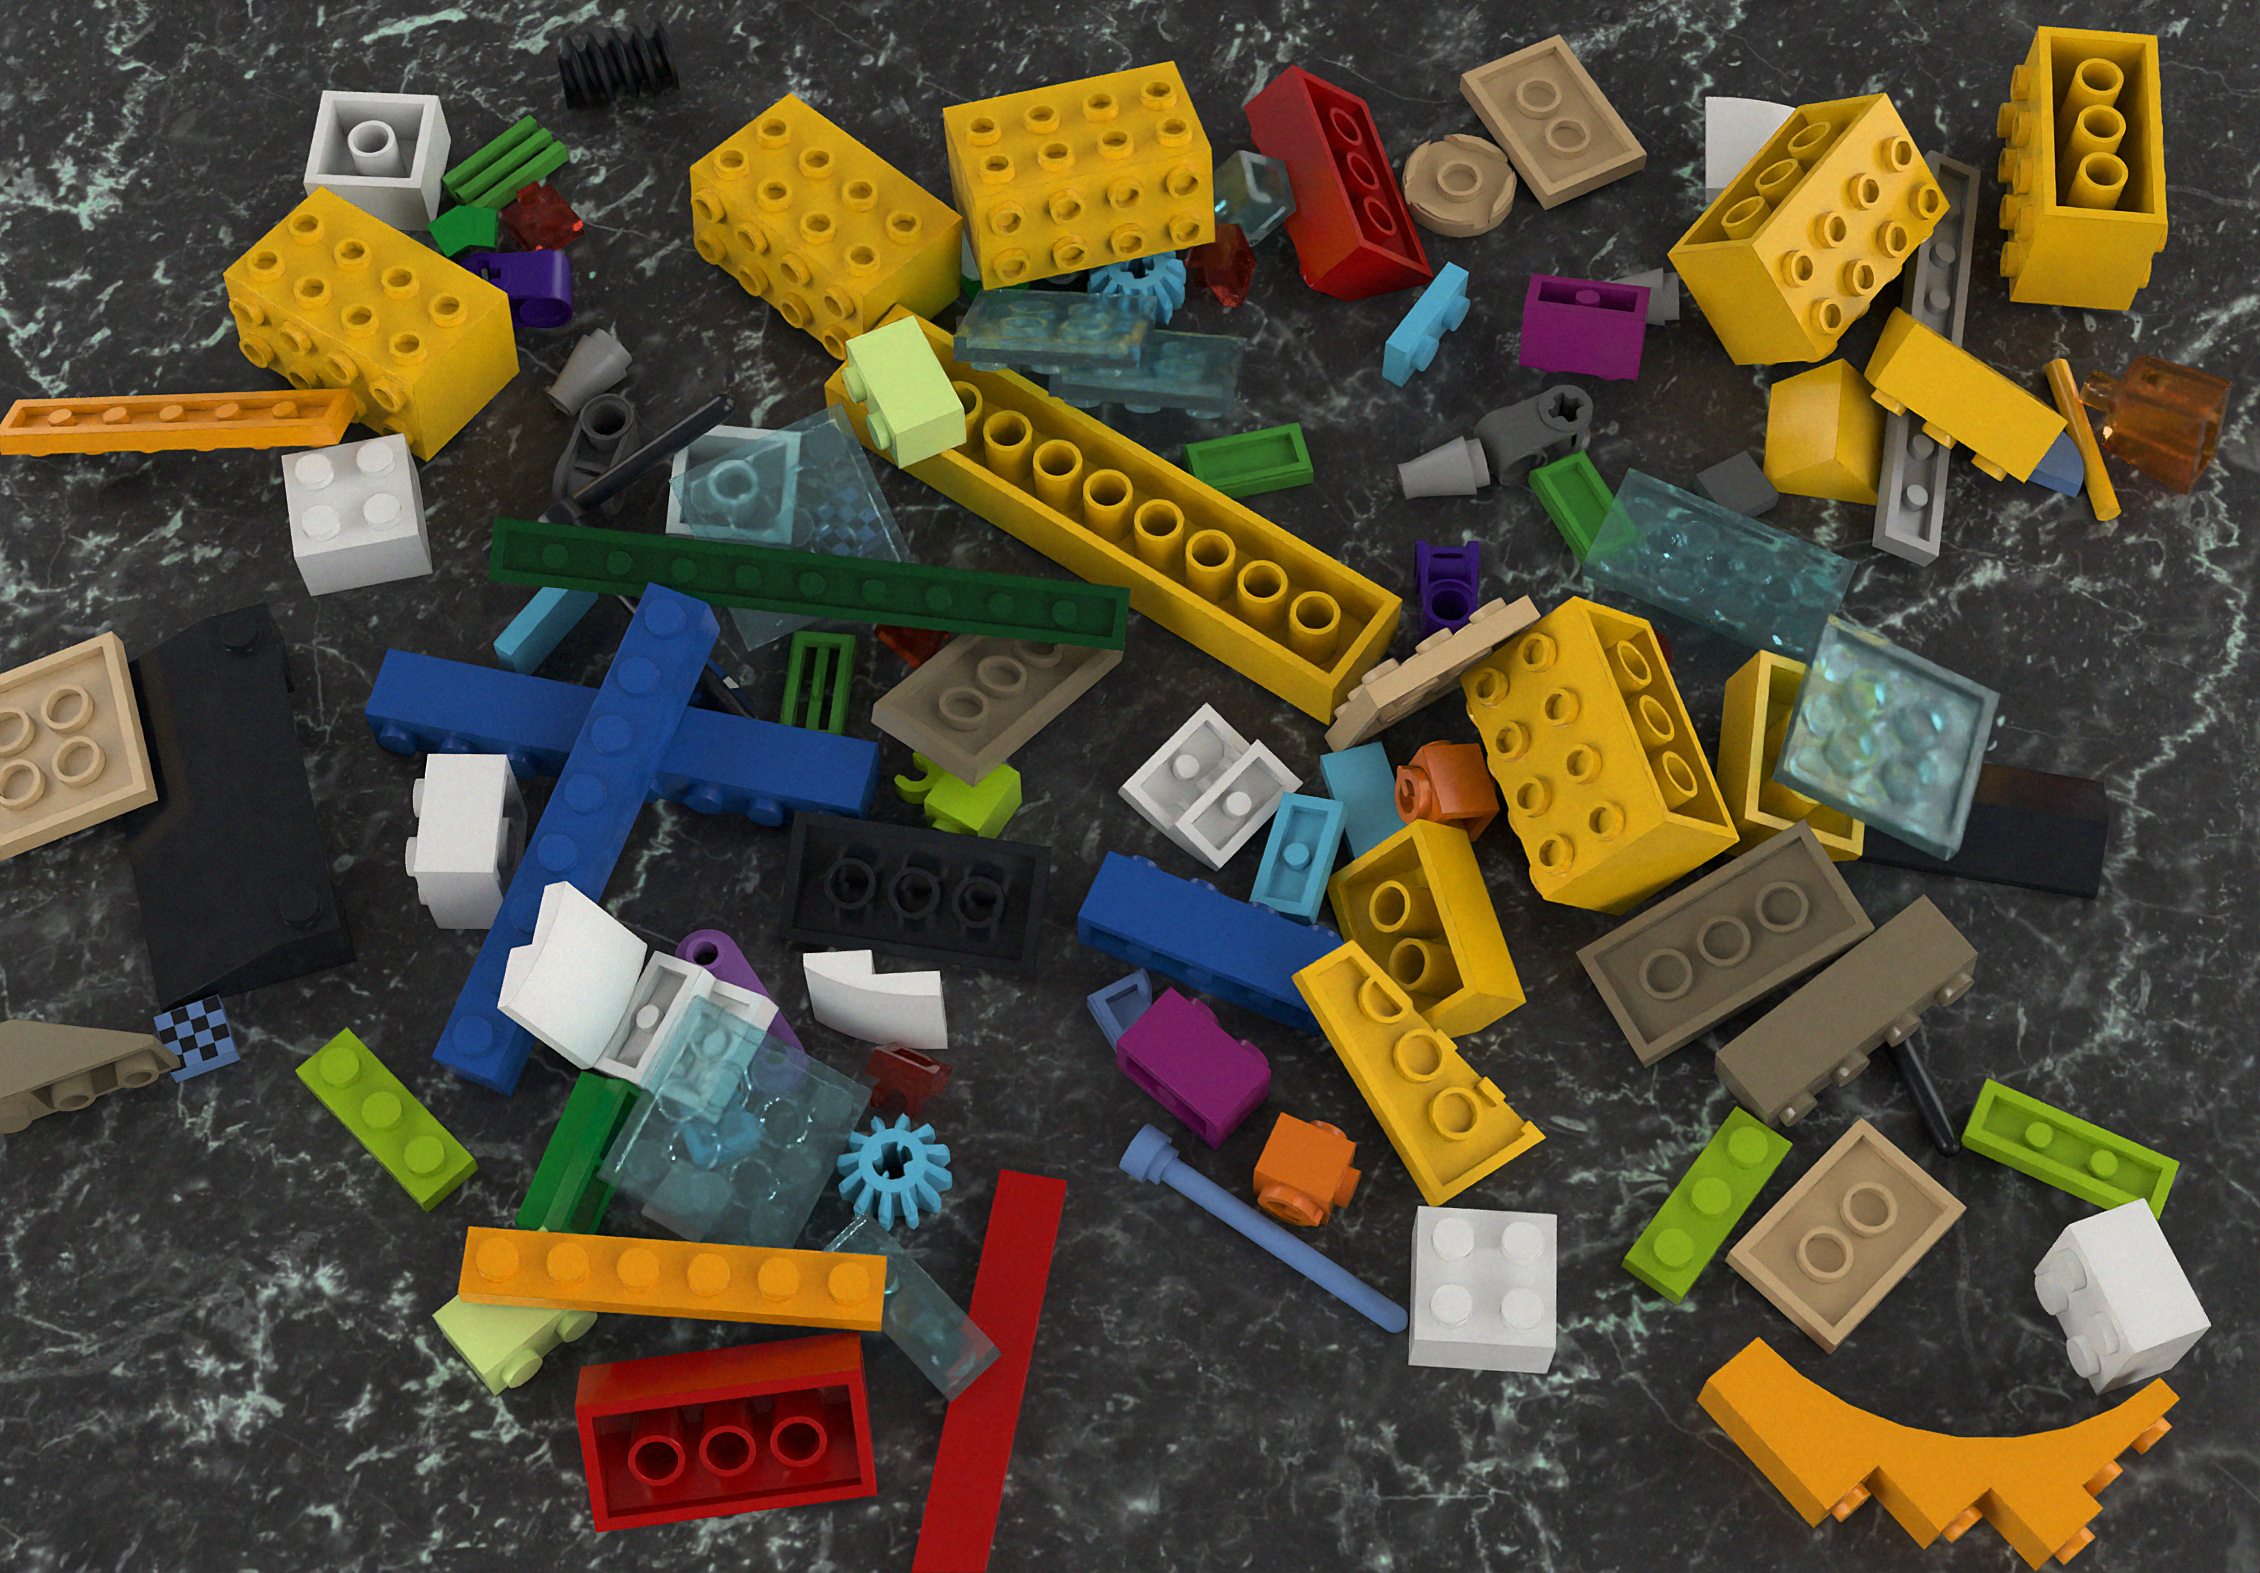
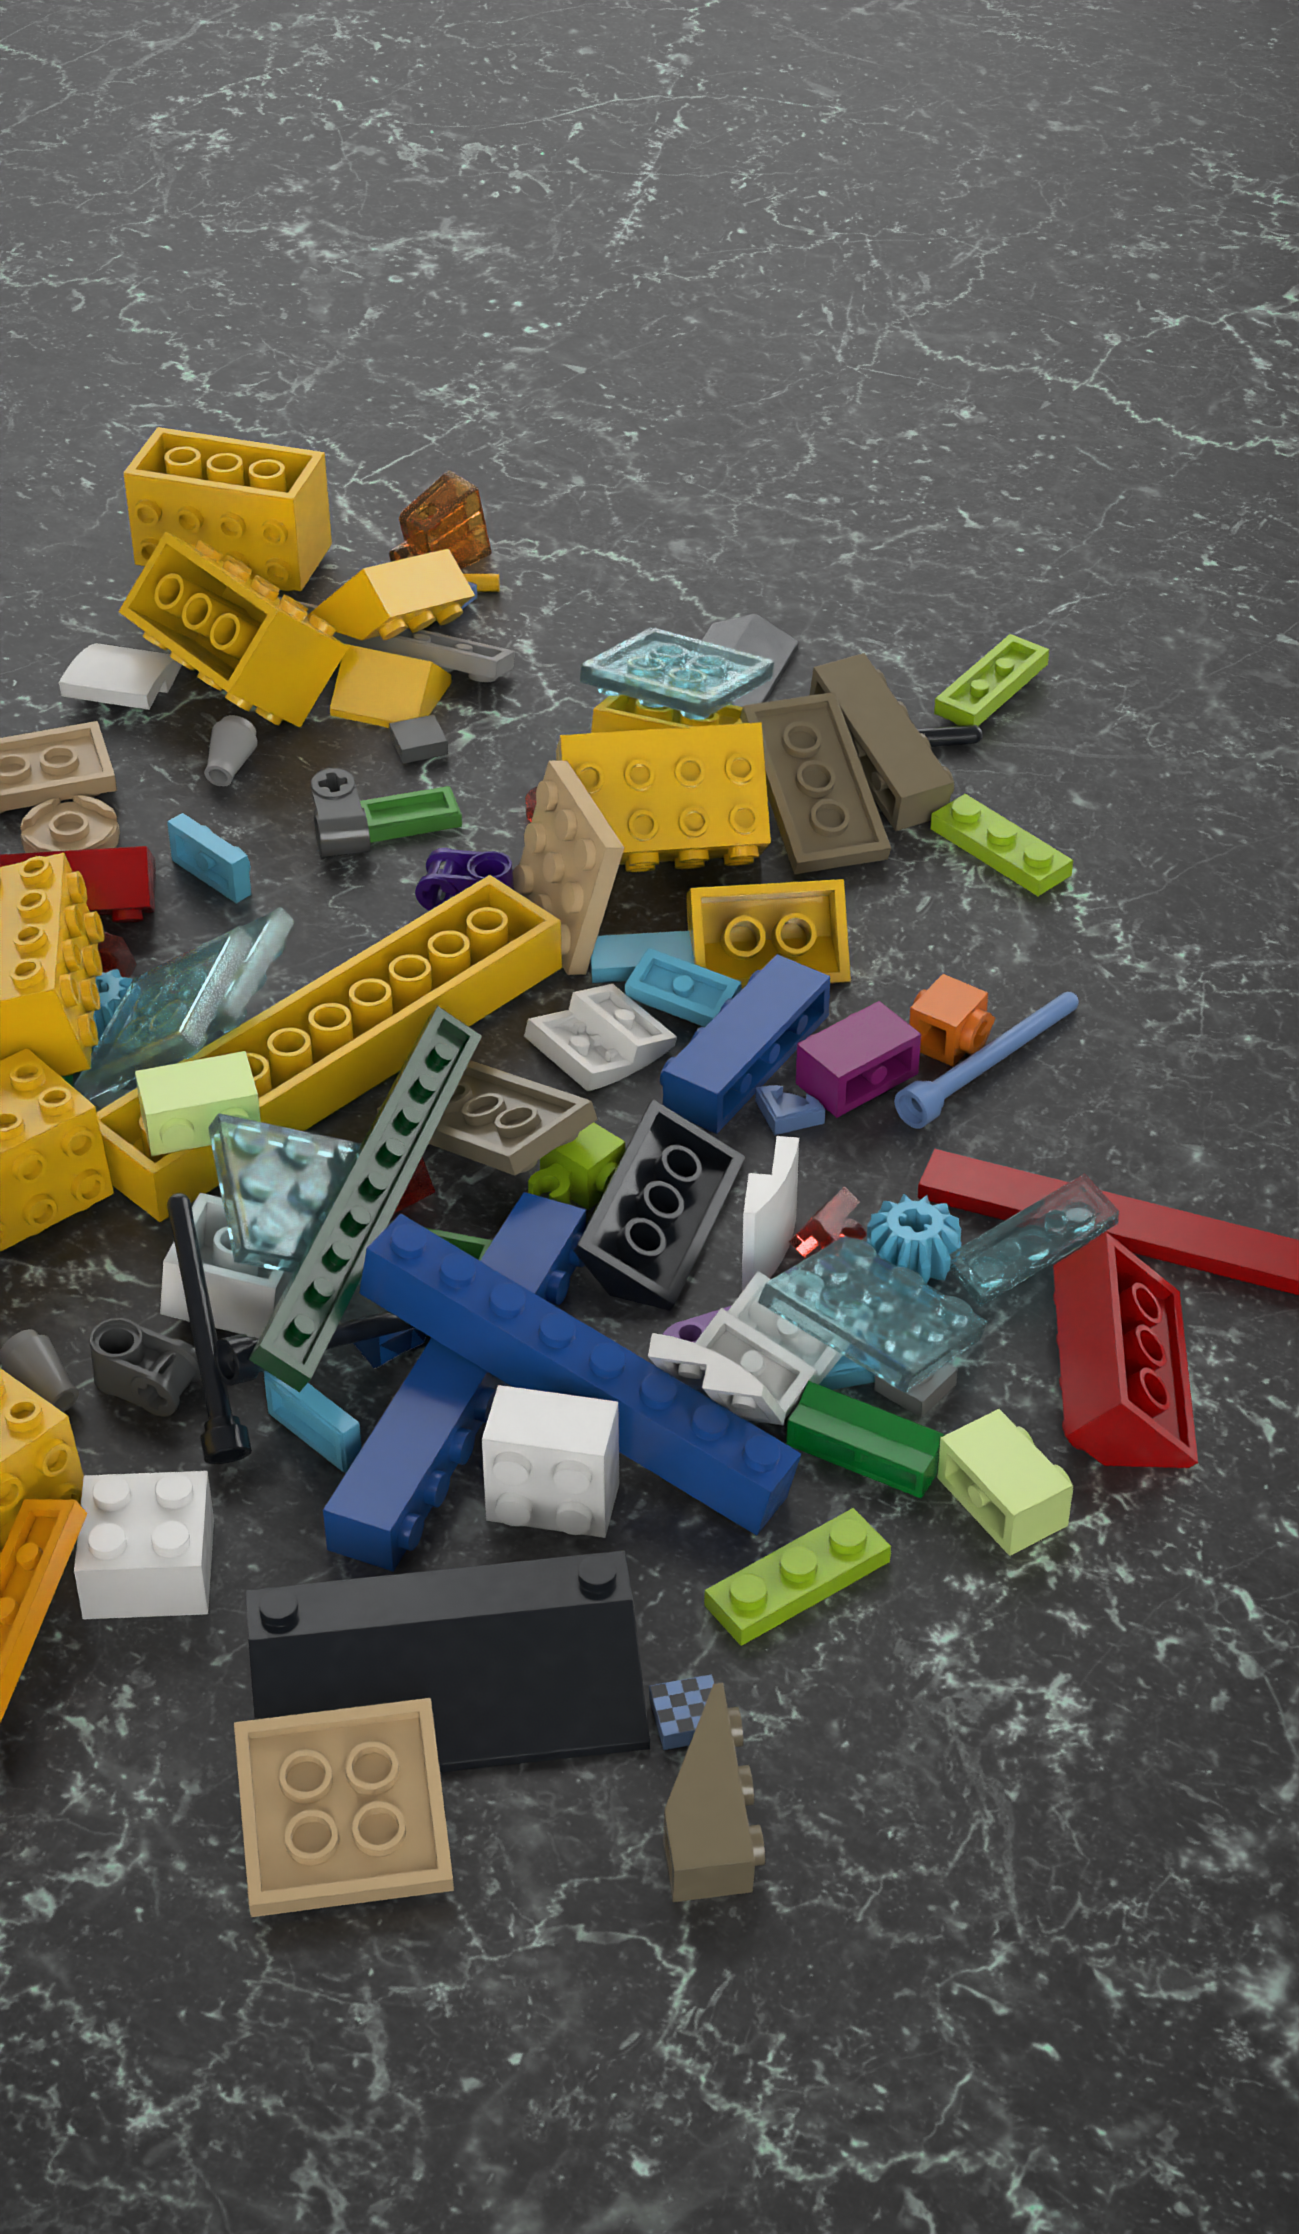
camera: 80 degrees left, 20 degrees down
(673, 1279) = (1003, 1358): light orange plate -> none
(1251, 461) = (296, 967): bright green tile -> none
(1423, 1094) = (898, 945): yellow wing -> none
(1446, 471) = (351, 864): light grey cone -> none
(1447, 787) = (647, 901): orange brick -> none
(1483, 1289) = (1059, 942): white brick -> none
(1584, 327) = (254, 769): magenta brick -> none
(1716, 567) = (488, 750): clear light blue plate -> none
(1824, 1452) = (1208, 797): light orange arch -> none
(1845, 1235) = (1037, 782): tan plate -> none
(2119, 1297) = (1109, 661): white brick -> none

